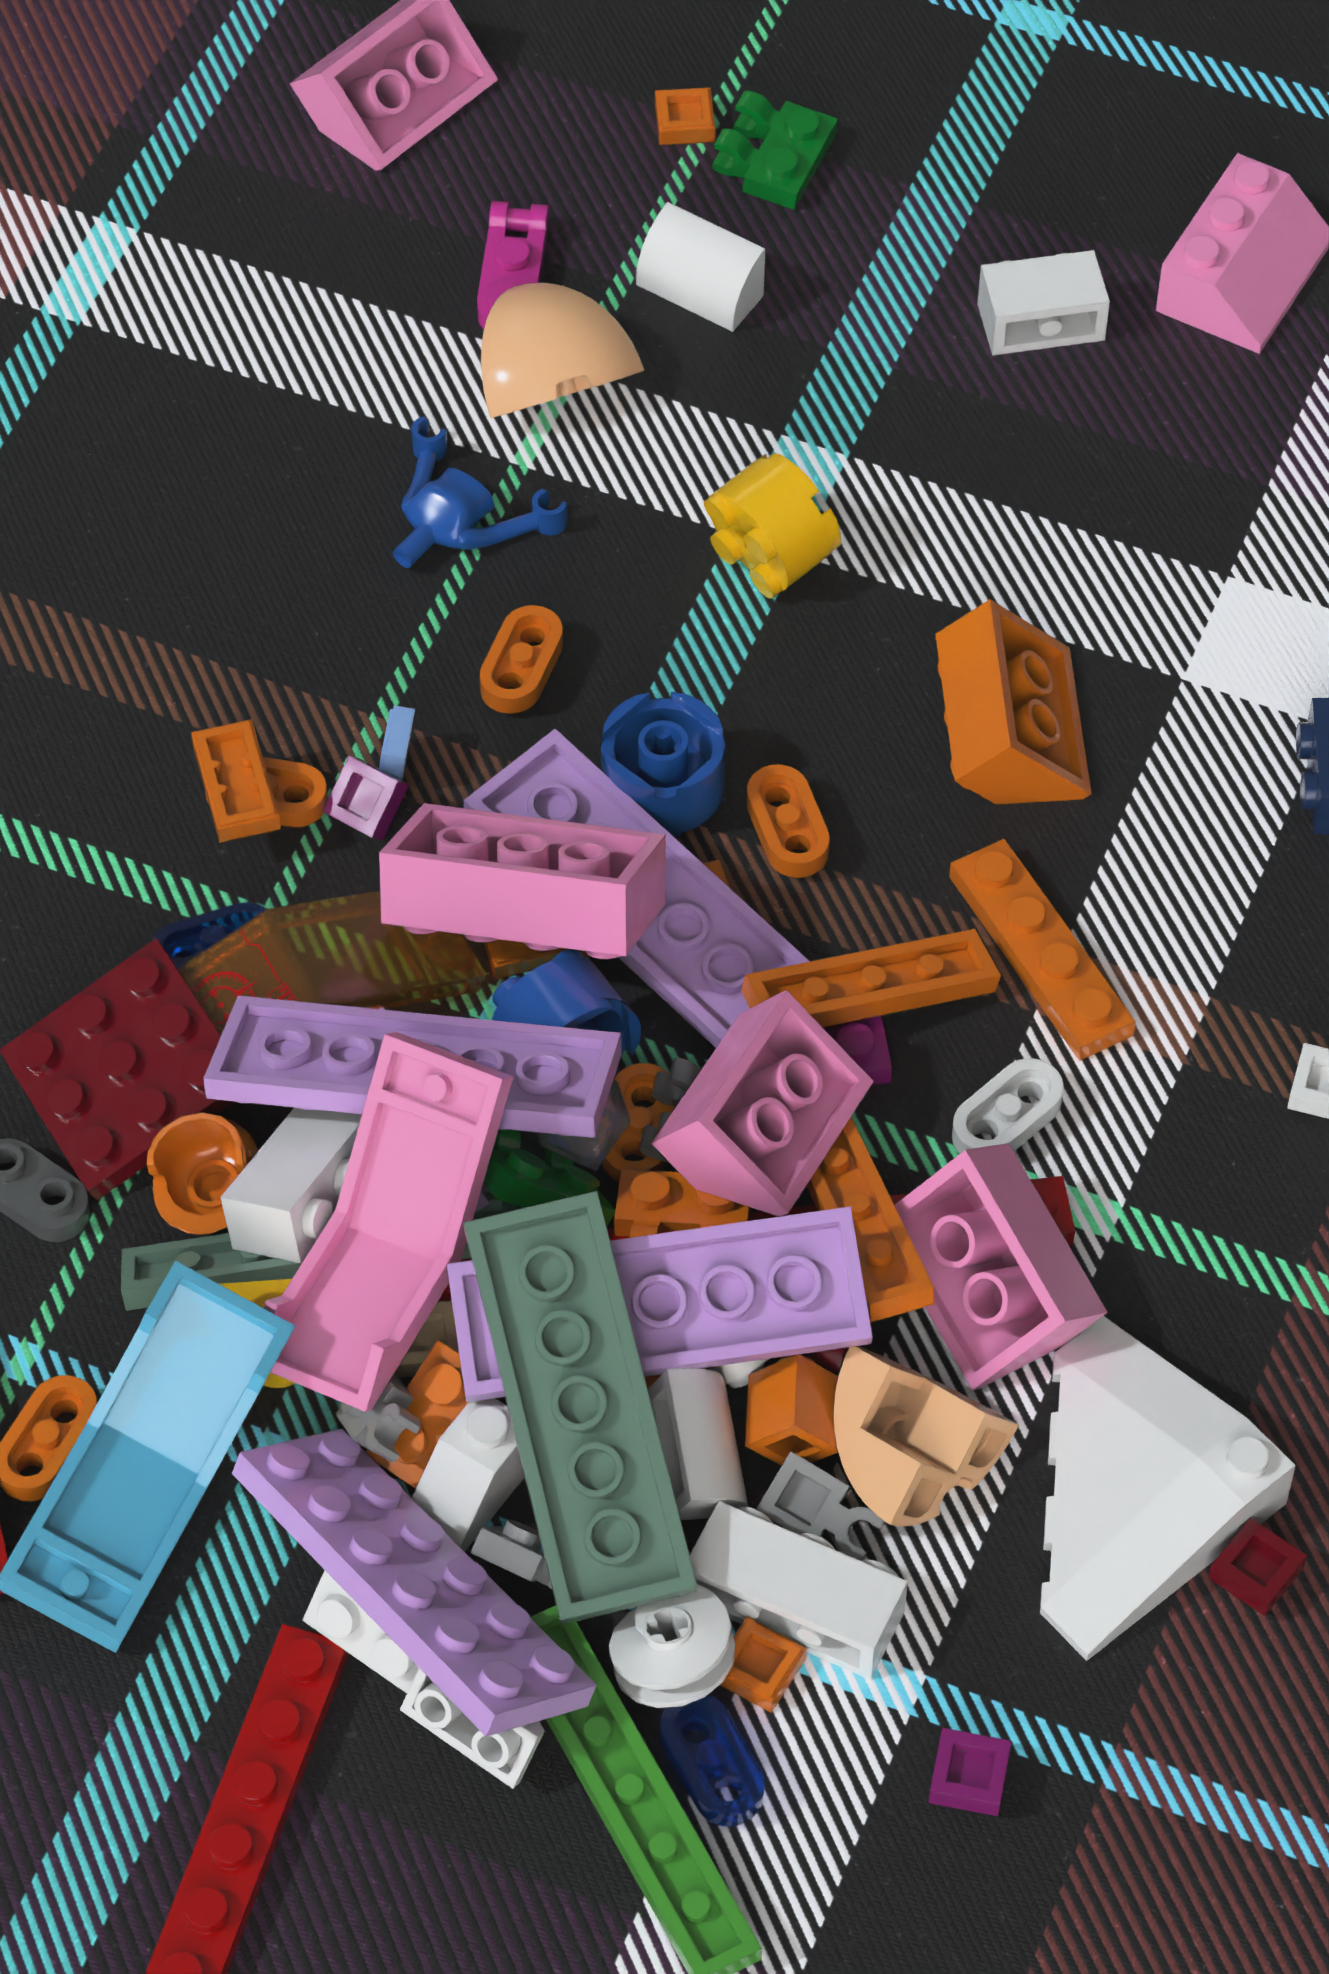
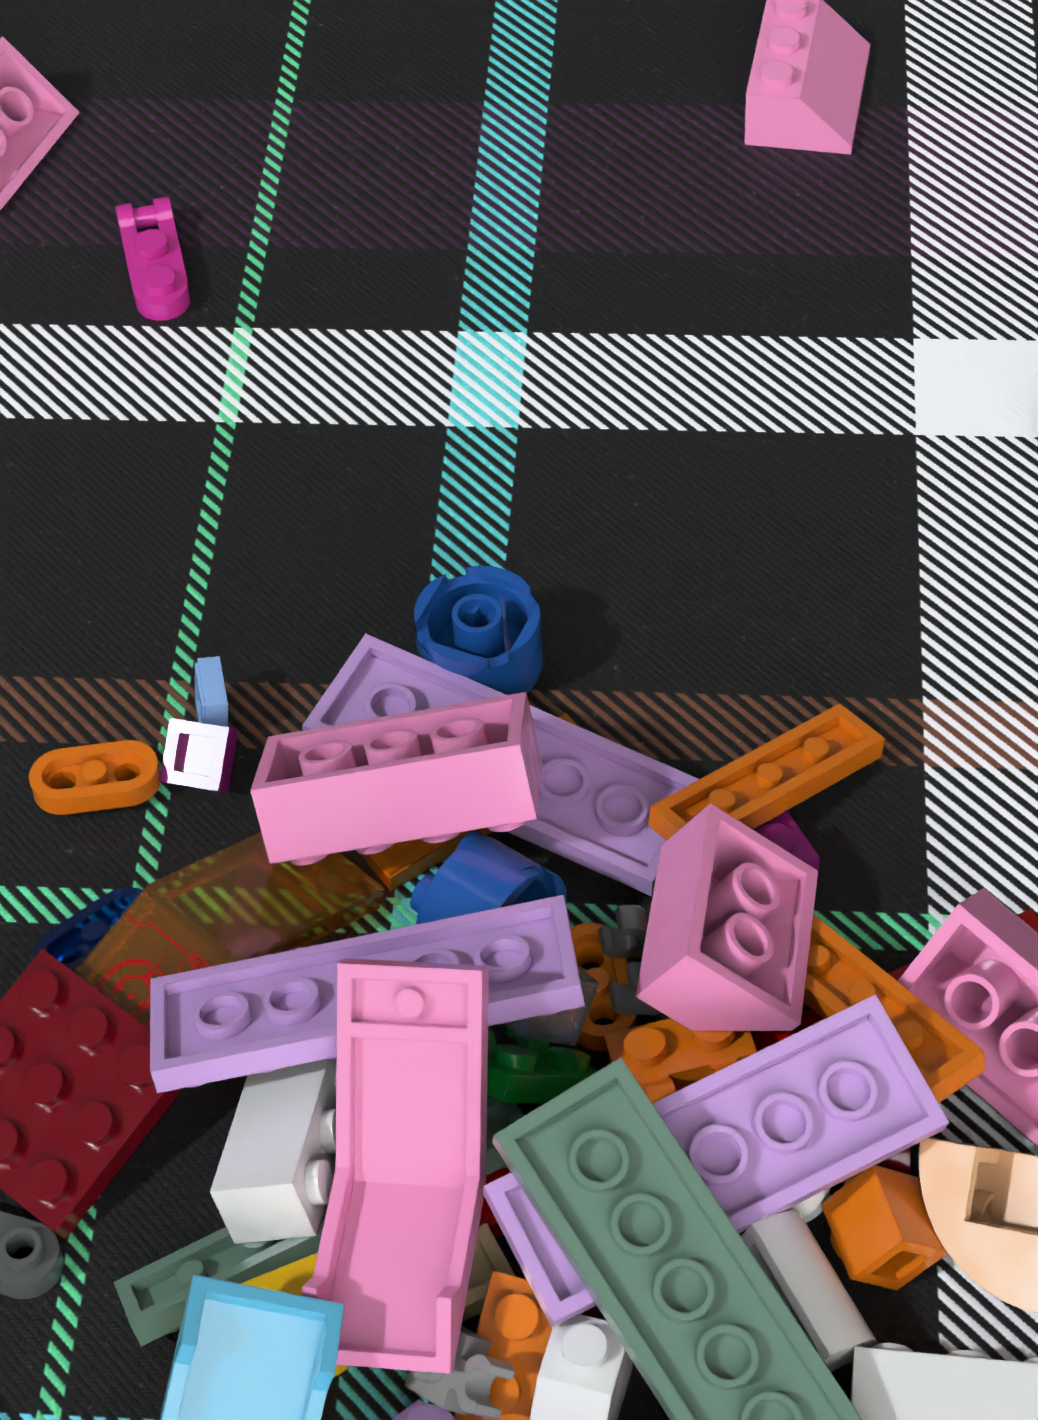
camera: 15 degrees left, 5 degrees down
(194, 1166) = (167, 1173): orange helmet -> none
(235, 781) = (66, 774): orange plate -> none
(454, 504) = (180, 468): blue piece -> none
(518, 664) = (299, 587): orange plate -> none
(548, 345) = (219, 307): light nougat brick -> none
(684, 116) = (260, 98): orange tile -> none
(701, 267) = (330, 208): white brick -> none
(771, 523) = (491, 398): yellow brick -> none
(788, 156) = (367, 102): green plate -> none
(790, 825) = (626, 667): orange plate -> none
(810, 1502) = (940, 1317): light grey plate -> none
(1002, 1113) = (944, 868): white plate -> none
(1011, 709) = (778, 501): orange slope -> none
(1042, 949) = (907, 706): orange plate -> none
(1043, 302) = (648, 158): white brick -> none

